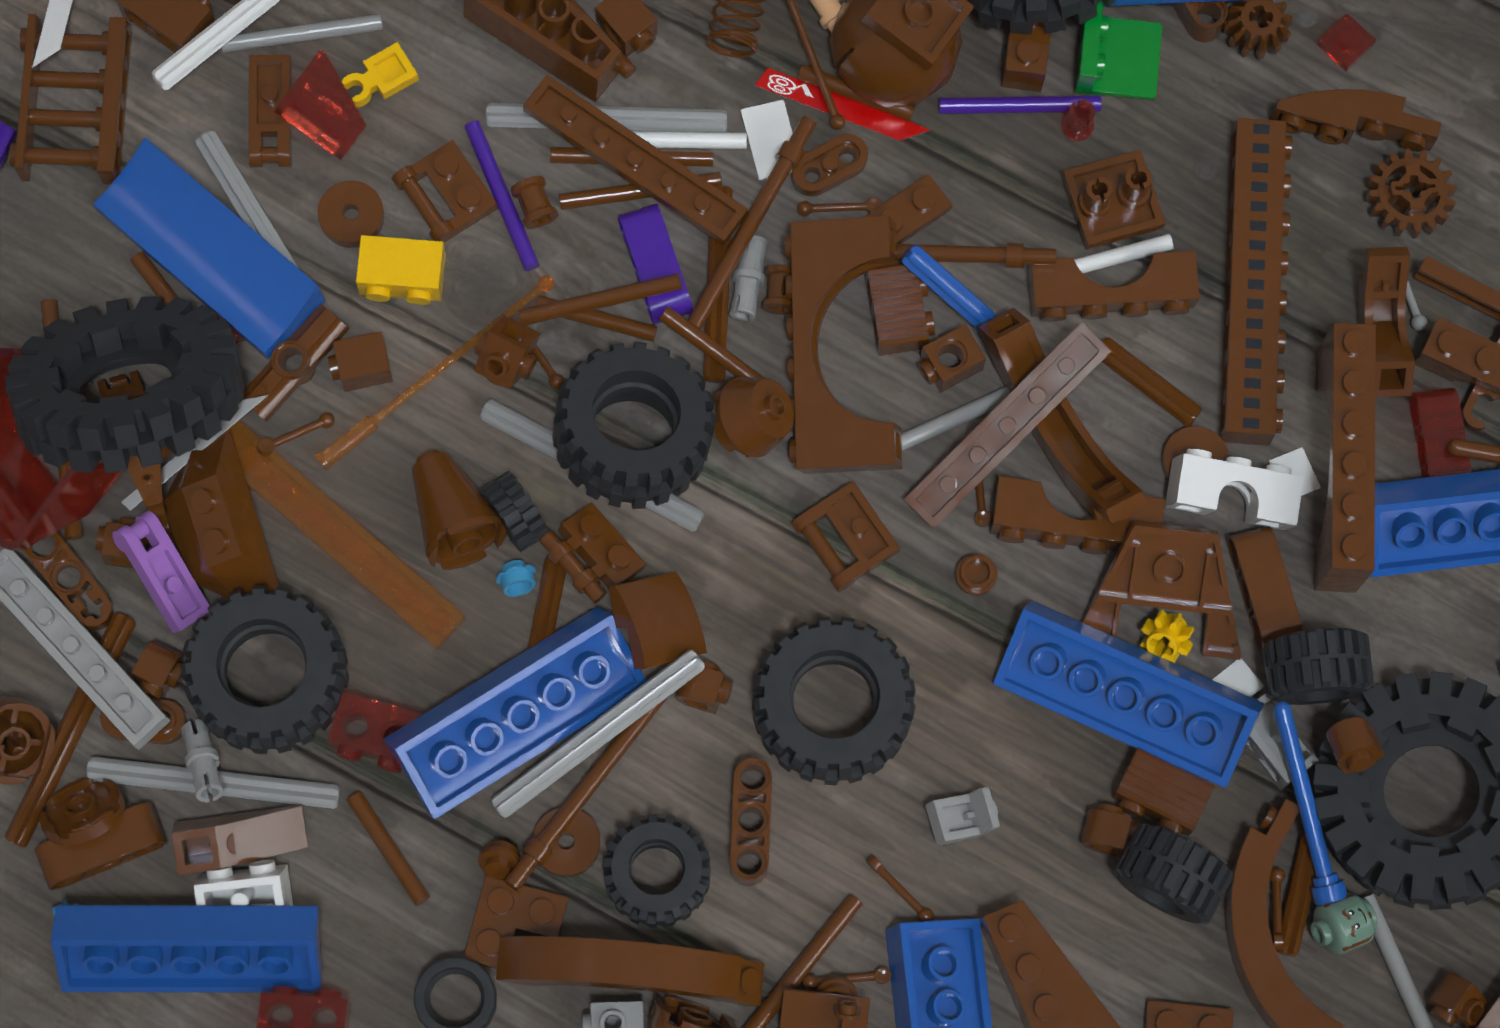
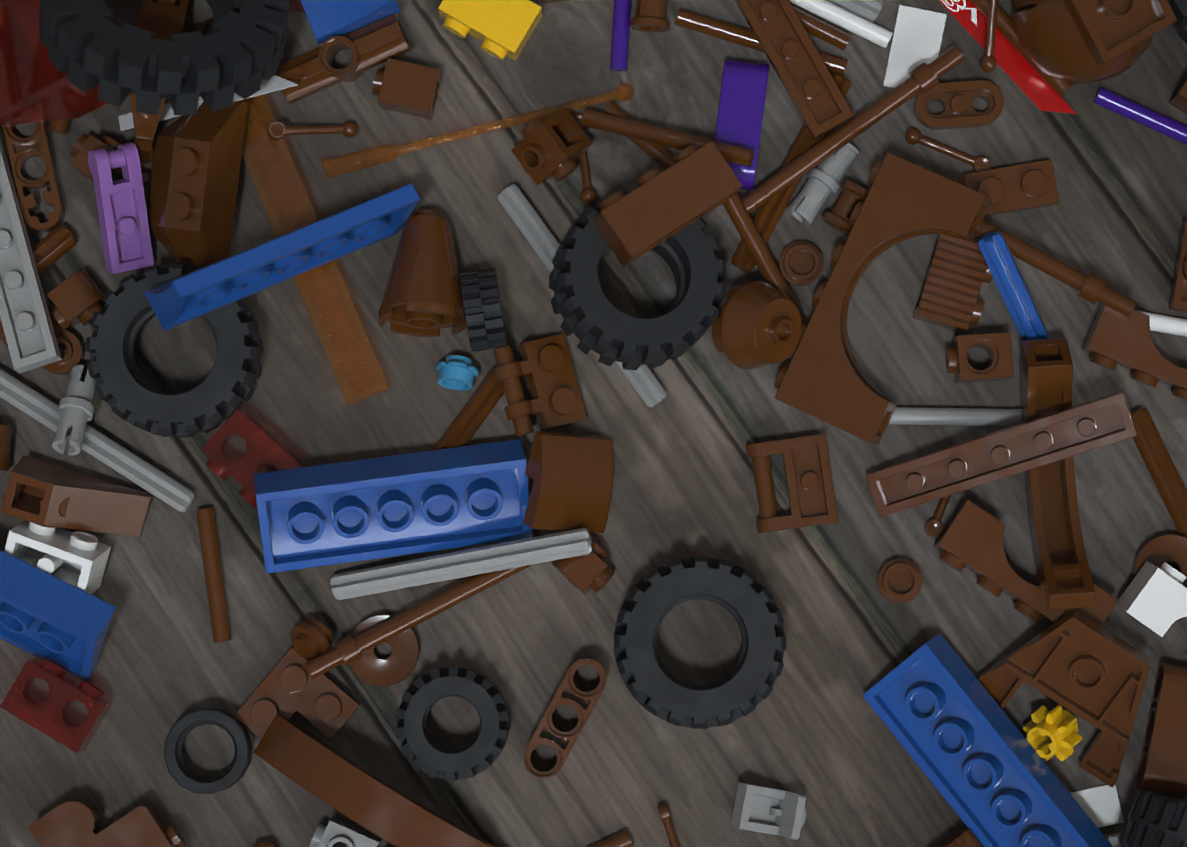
camera: 30 degrees right, 10 degrees up
(323, 540) = (281, 258): none -> blue arch
(627, 343) = (666, 202): none -> reddish brown brick
(763, 353) = (800, 263): none -> reddish brown plate

